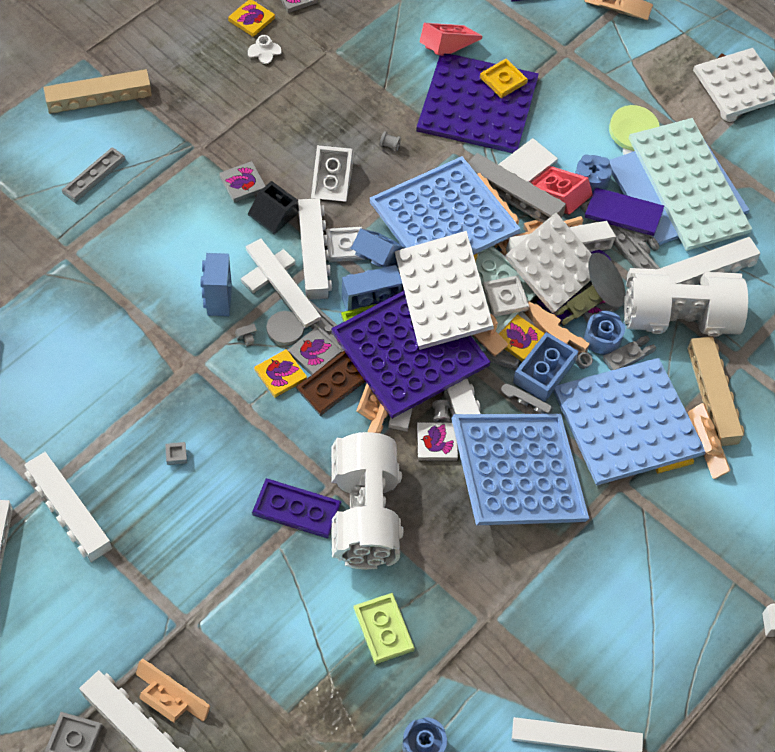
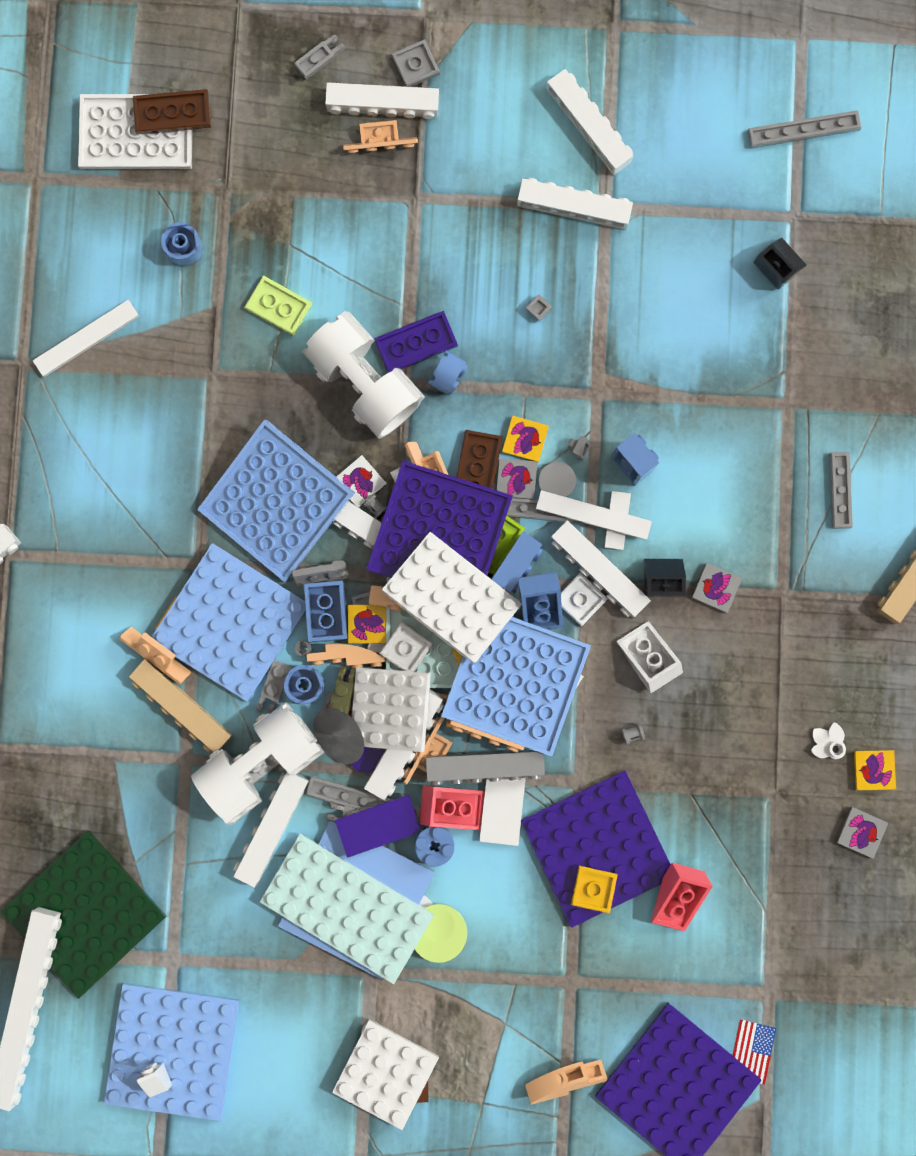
camera: 145 degrees right, 25 degrees up
(295, 456) = (447, 372): none -> medium blue brick

